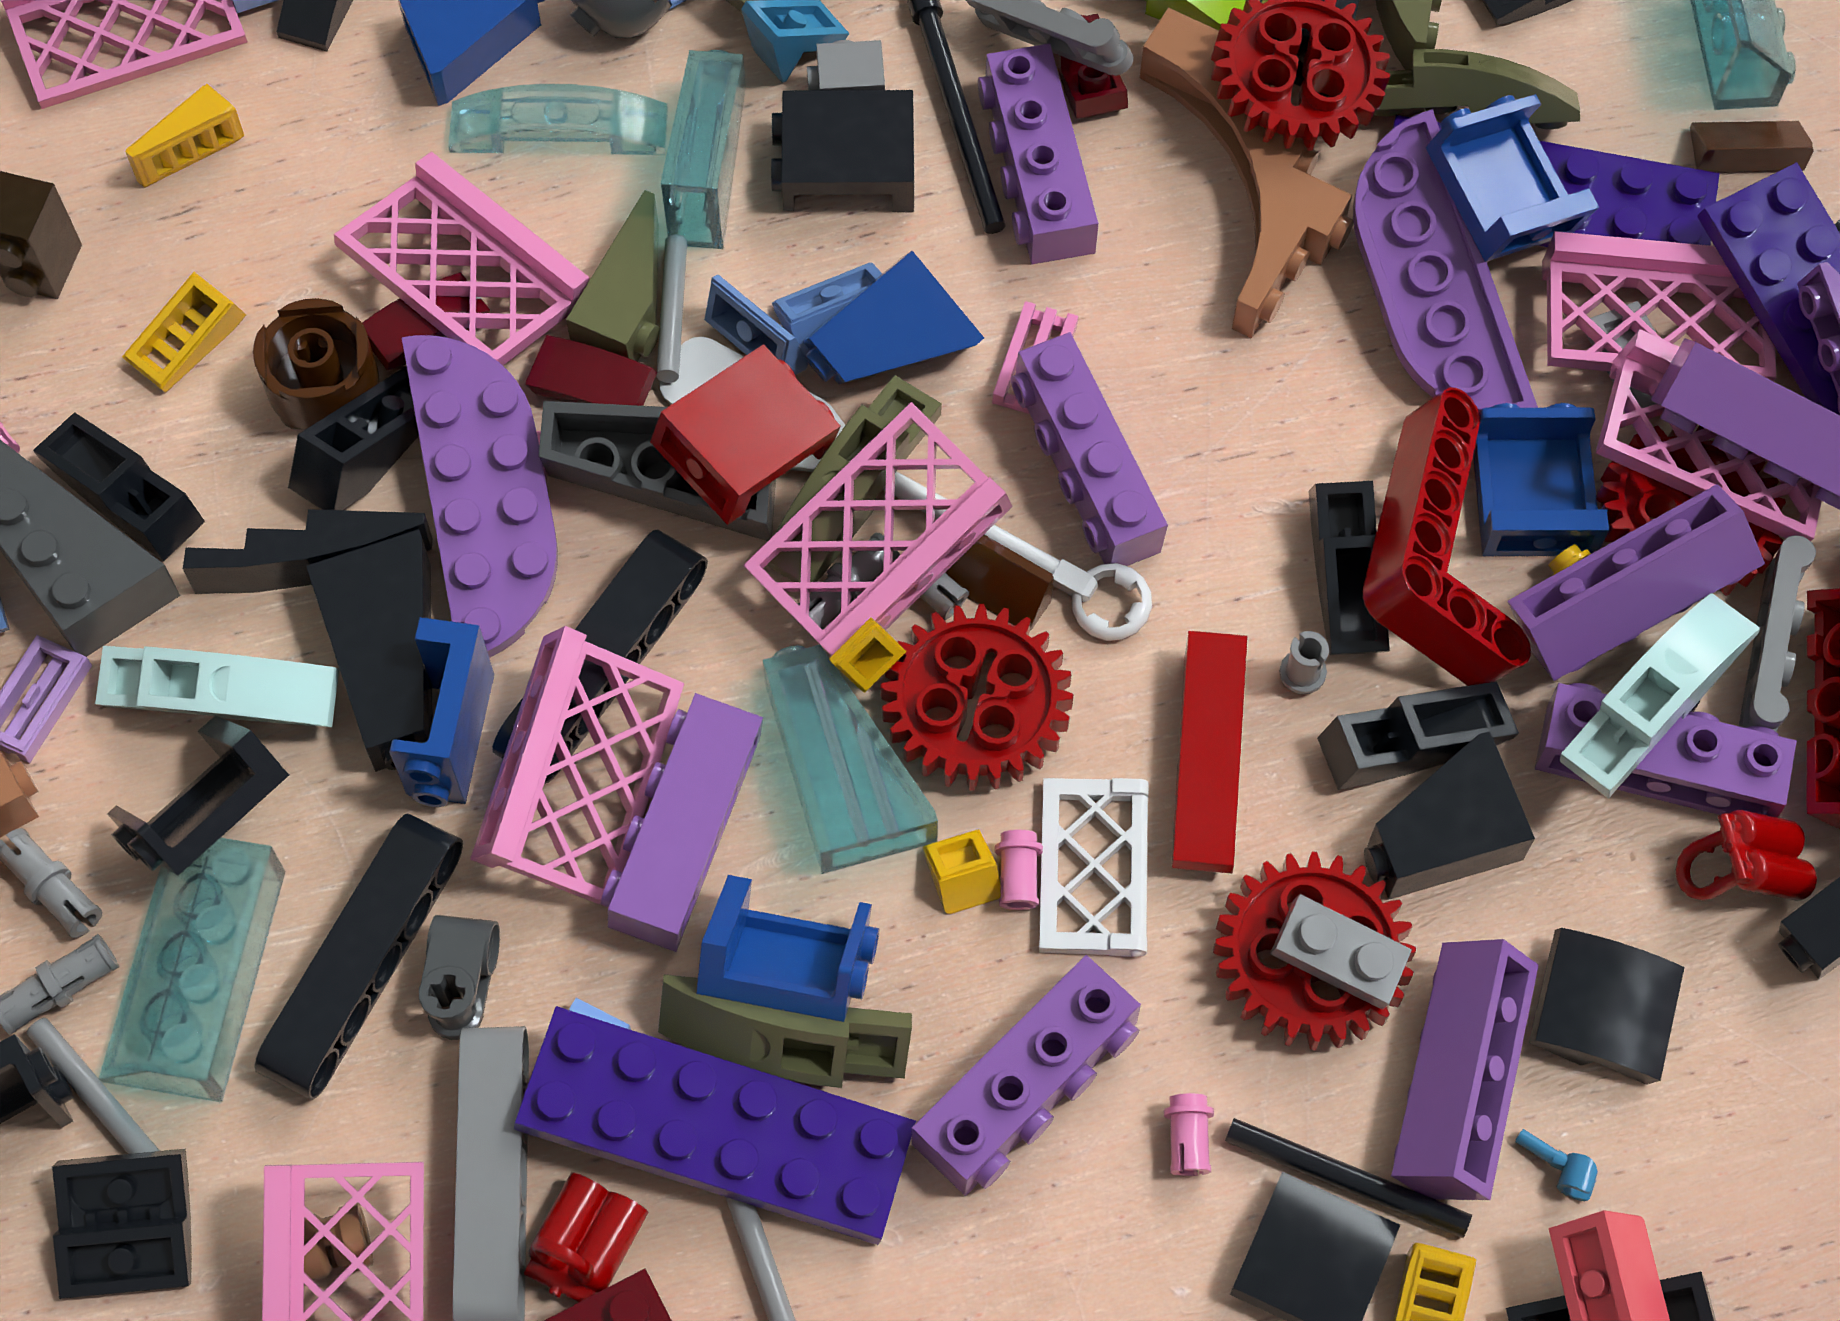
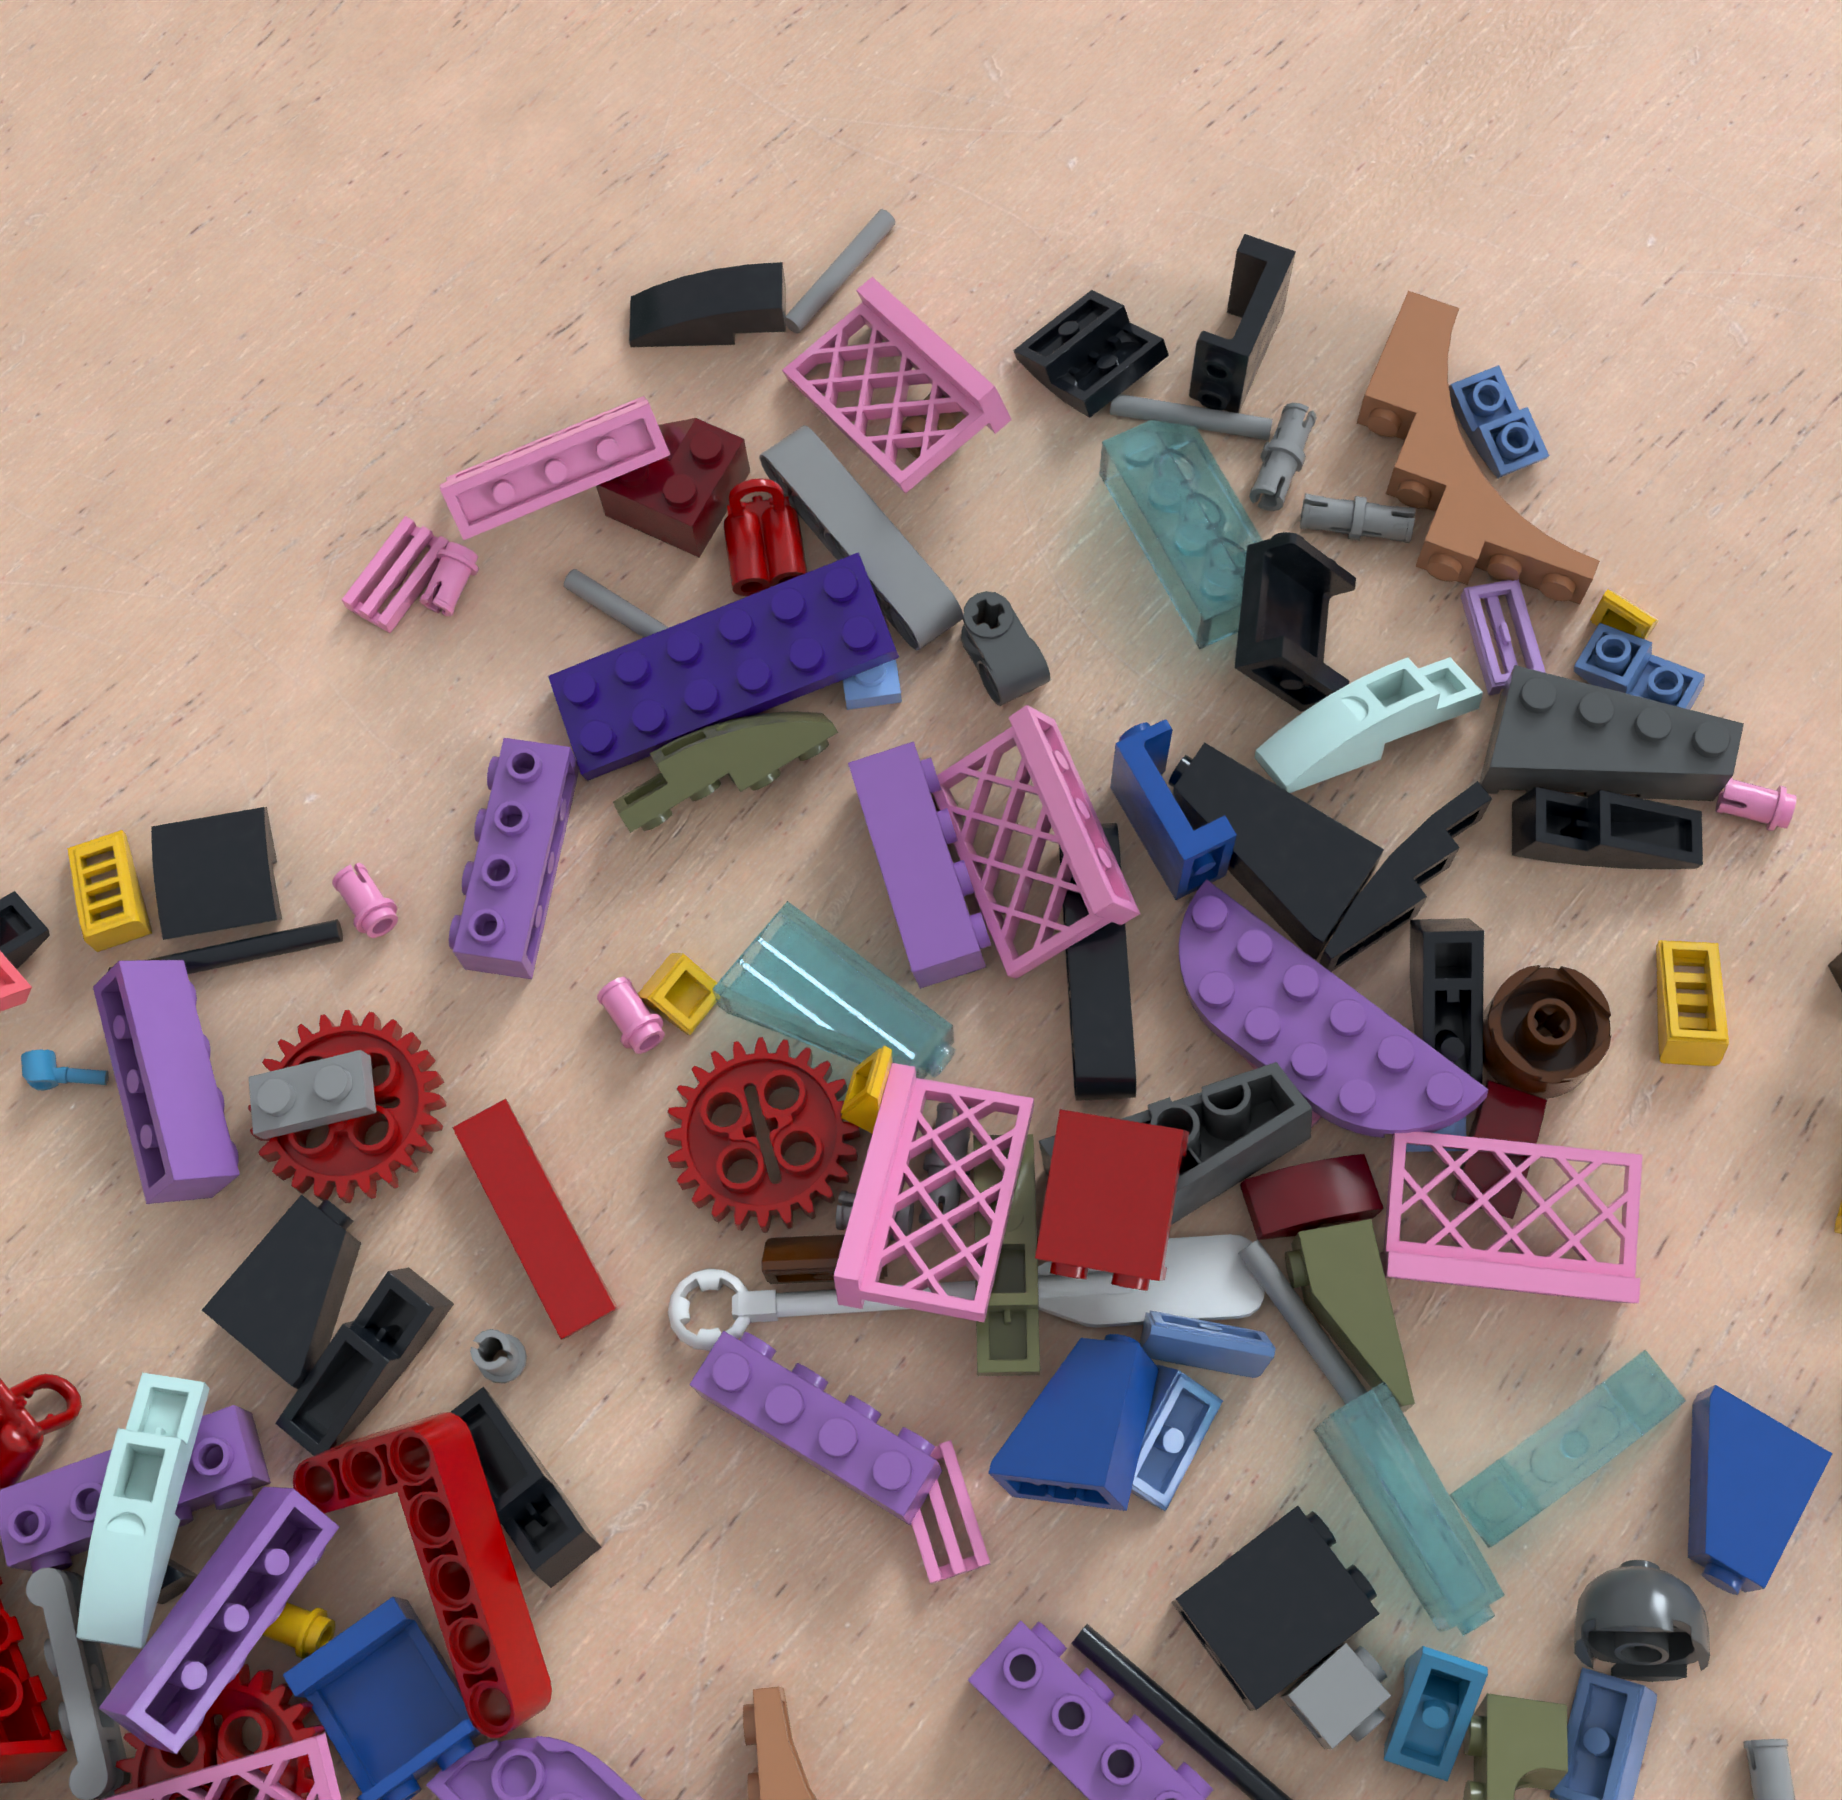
camera: 150 degrees right, 5 degrees up
(358, 956) = (1084, 618): black beam -> none
(784, 959) = (757, 810): blue panel -> none
(1054, 893) = (595, 1024): white window -> none
(1607, 1005) = (80, 1225): black slope -> none

